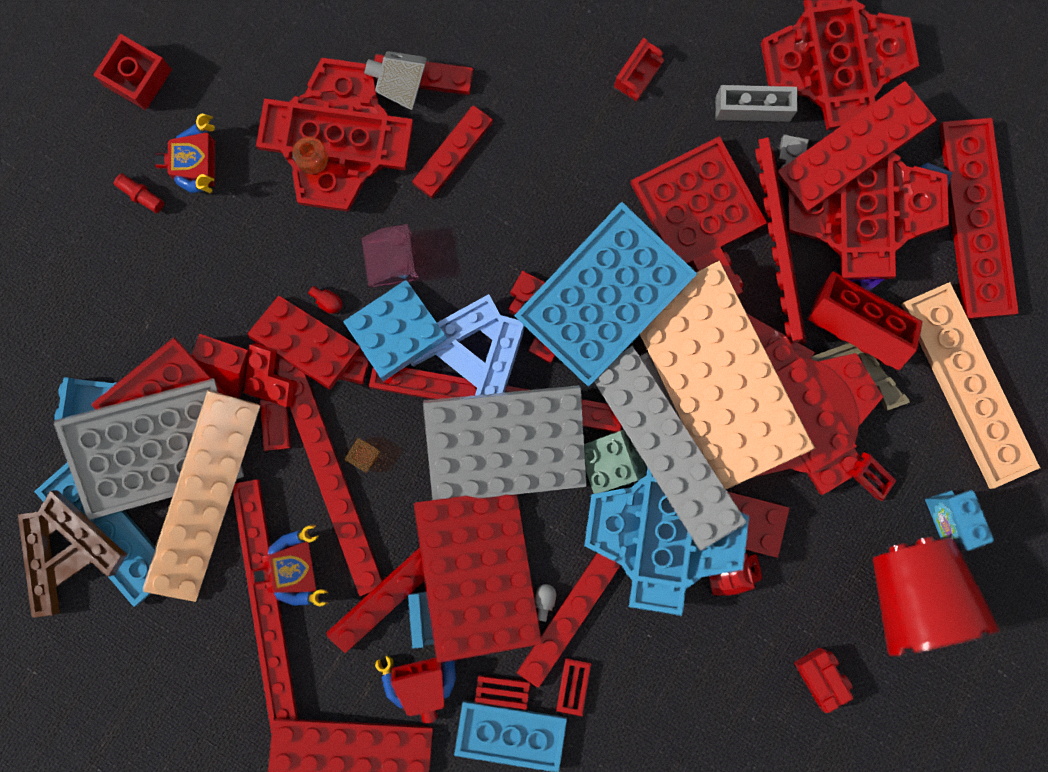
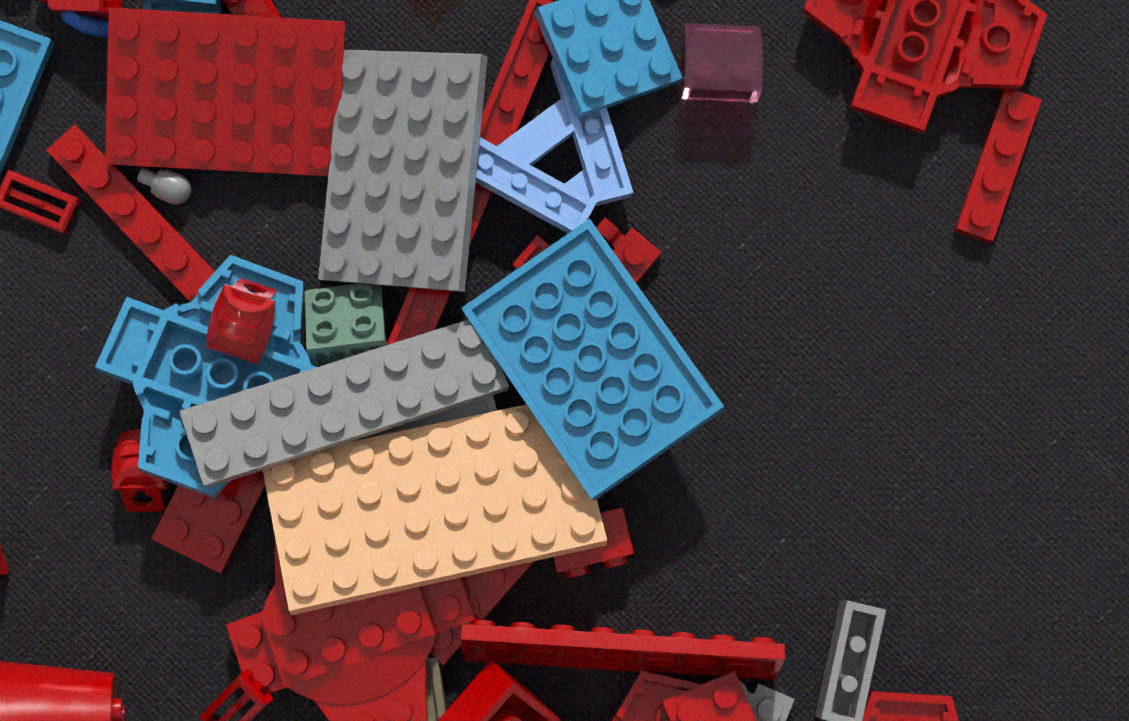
camera: 100 degrees right, 0 degrees up
(398, 76) = (994, 121): light grey torso -> none
(452, 151) = (867, 186): red plate -> none
(502, 702) = (40, 93): red tile -> none
(629, 524) = (242, 321): none -> red piece
(639, 69) = (941, 496): red hinge -> none
(698, 201) = (712, 541): red plate -> none

